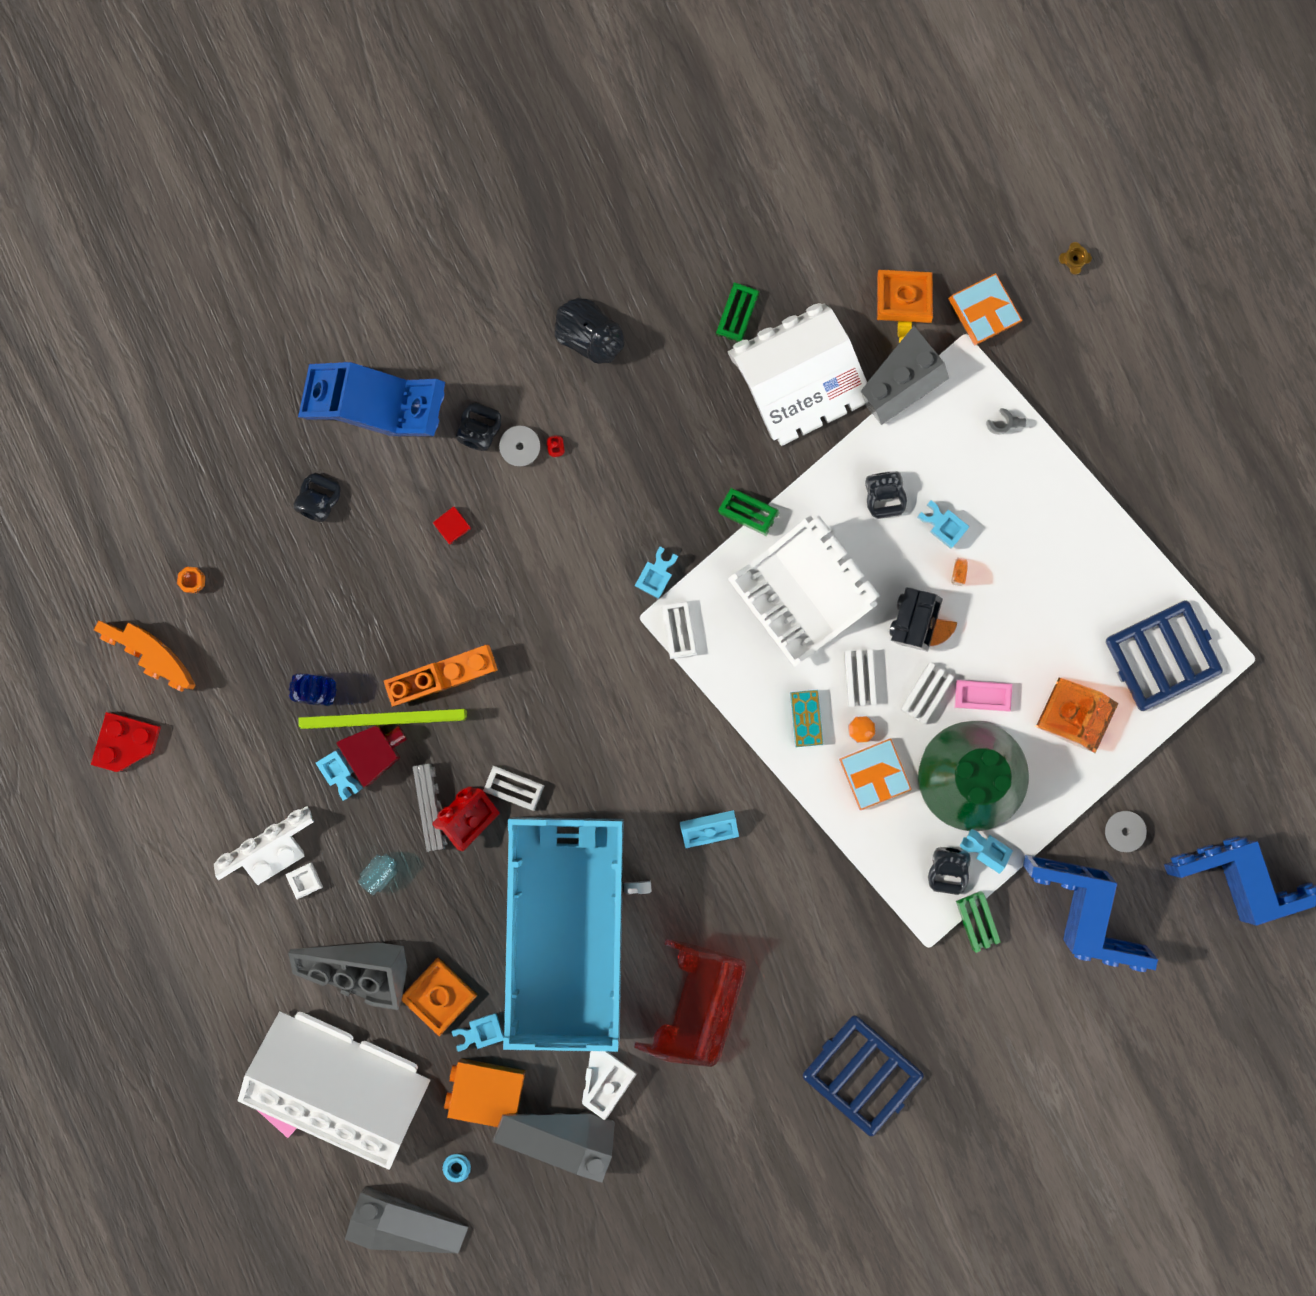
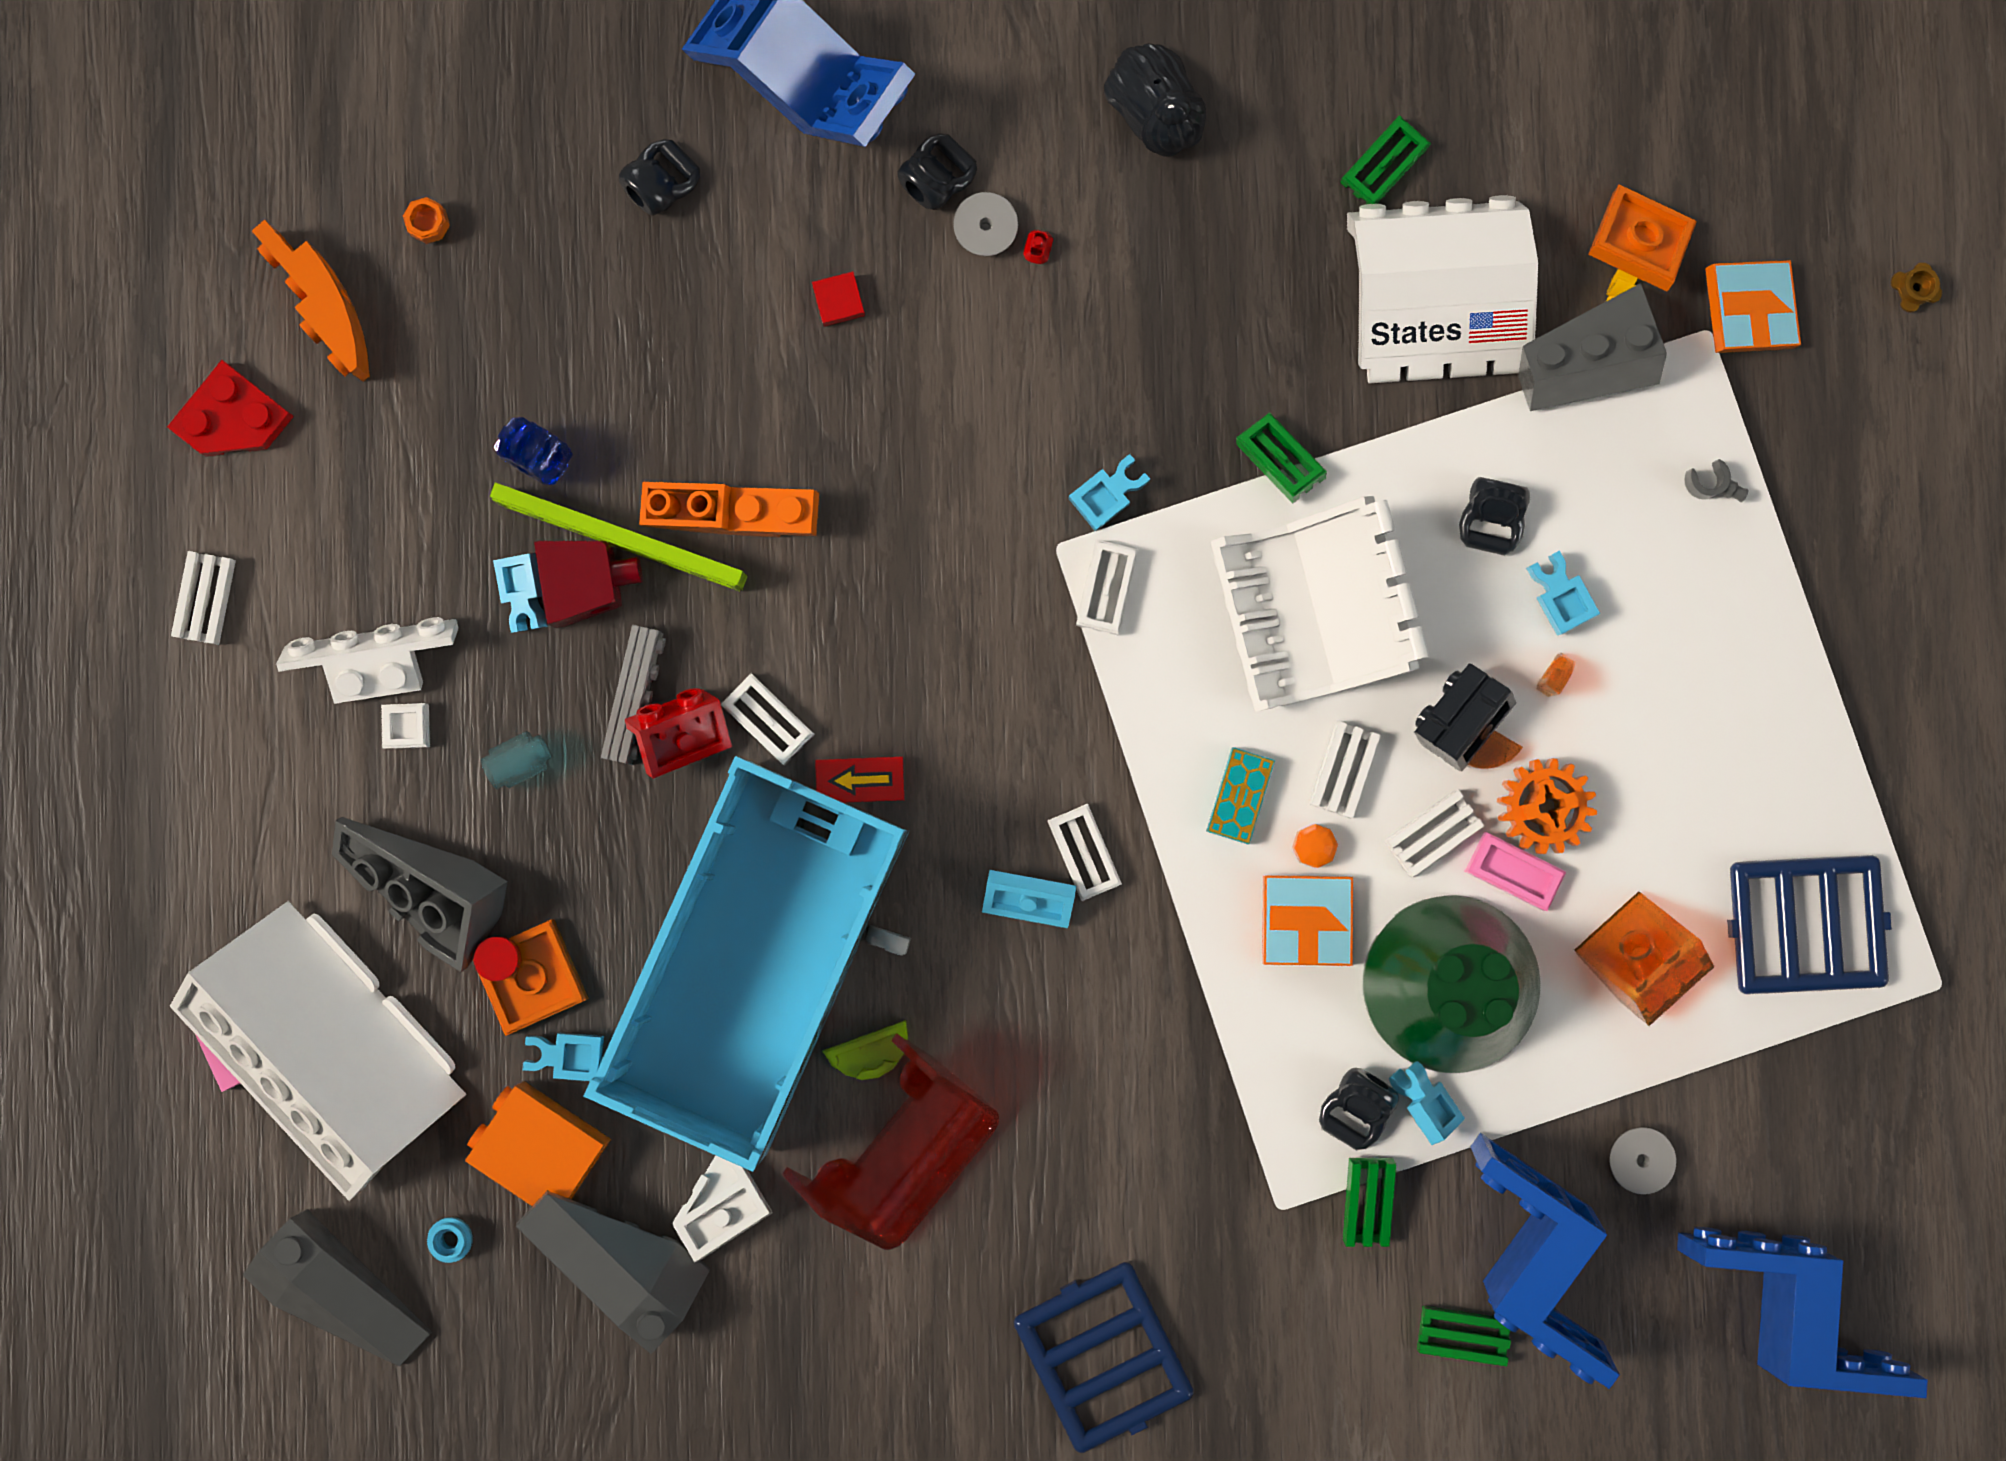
camera: 20 degrees right, 0 degrees up
(153, 855) = (187, 594): none -> white tile
(416, 993) = (497, 958): none -> red tile
(583, 800) = (861, 779): none -> red tile
(654, 958) = (869, 1054): none -> lime tile
(713, 772) = (1099, 887): none -> white tile
(992, 660) = (1543, 789): none -> orange gear
(1066, 986) = (1501, 1341): none -> green tile

